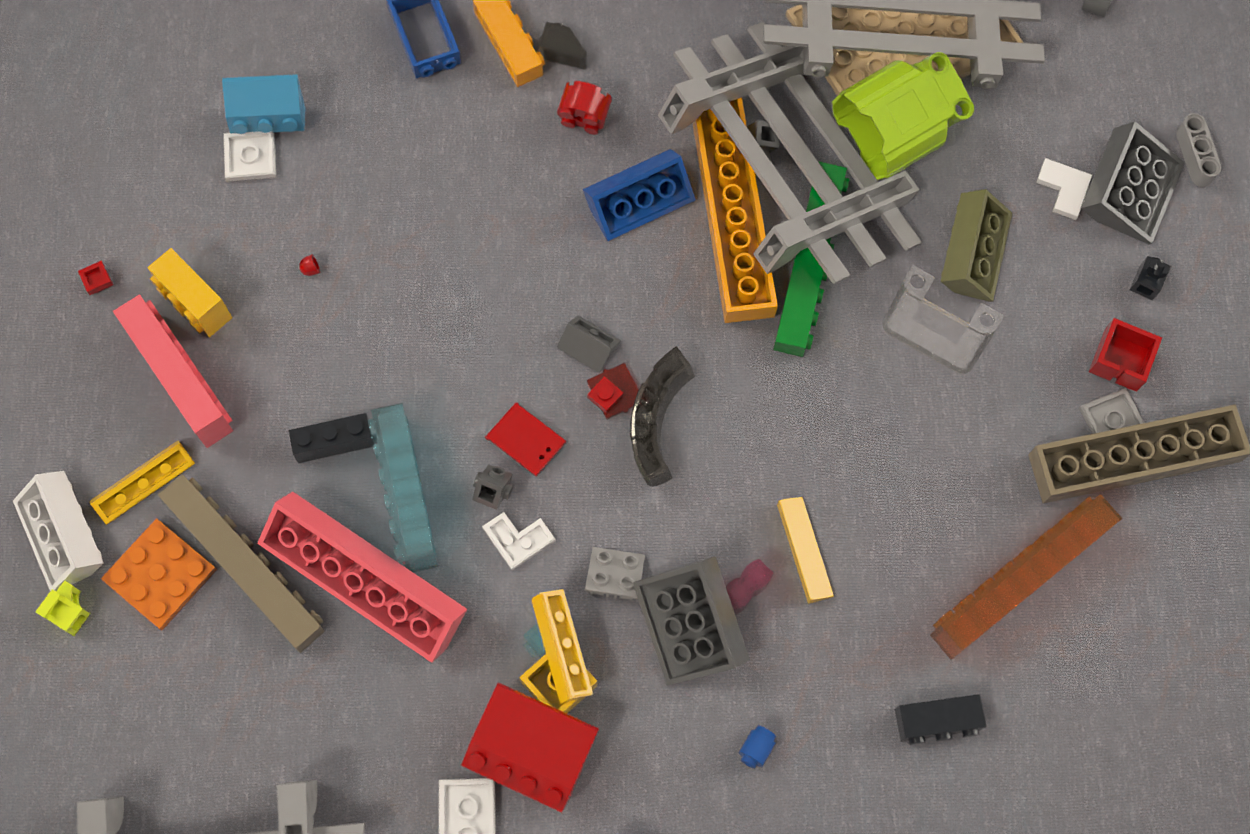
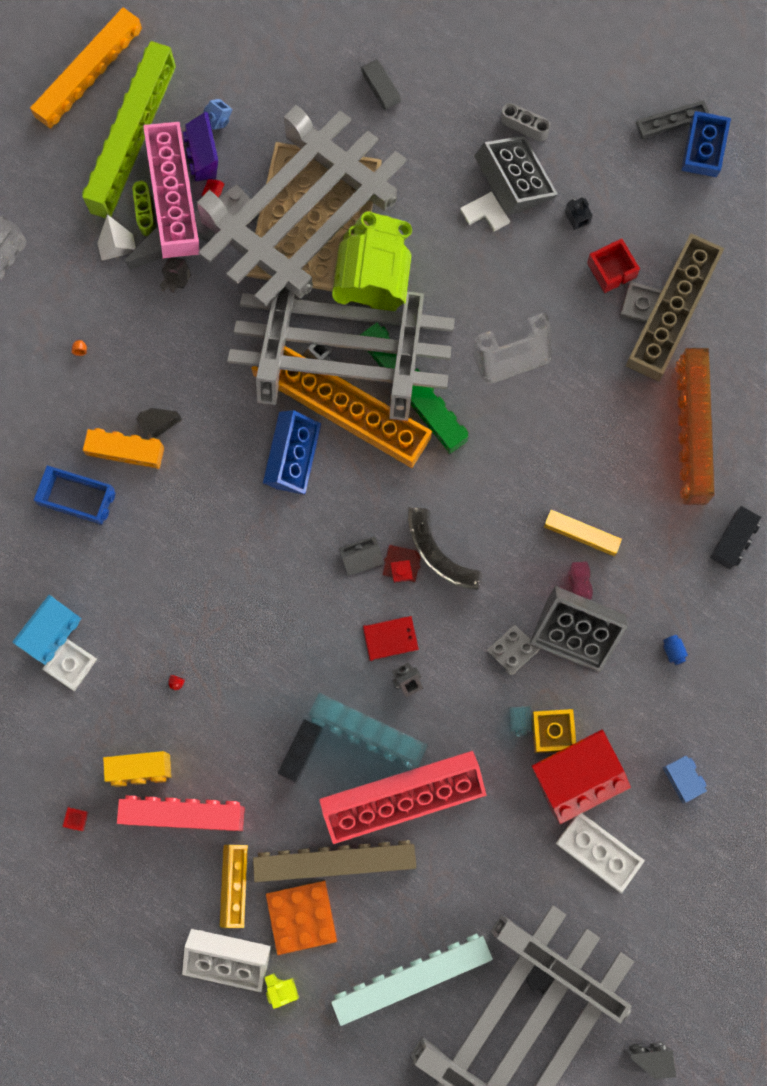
camera: 45 degrees left, 5 degrees up
(175, 737) = (411, 980): none -> light aqua brick
(514, 545) = (452, 693): white tile -> none
(561, 646) = (538, 713): yellow slope -> none
(584, 107) = (210, 440): red brick -> none
(976, 245) = (481, 290): olive slope -> none

